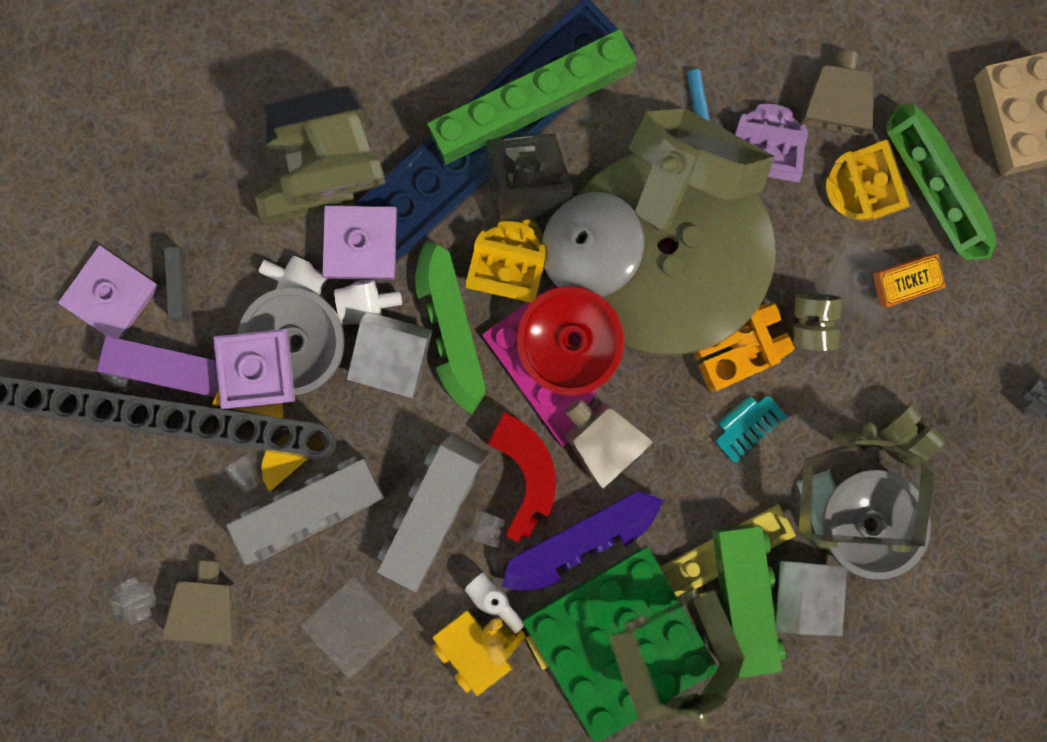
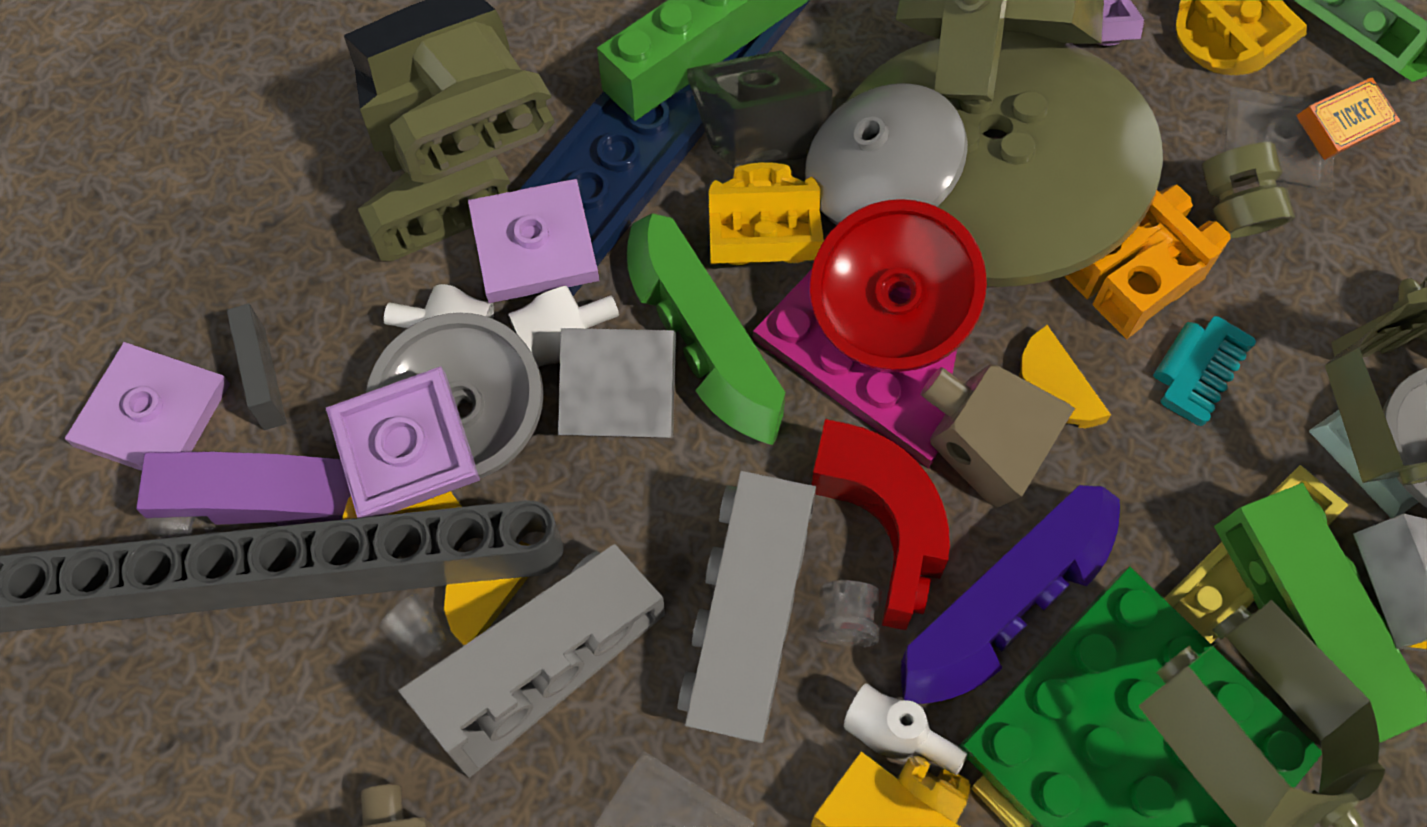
camera: 10 degrees left, 20 degrees down
(654, 414) = (1053, 370): none -> yellow tile

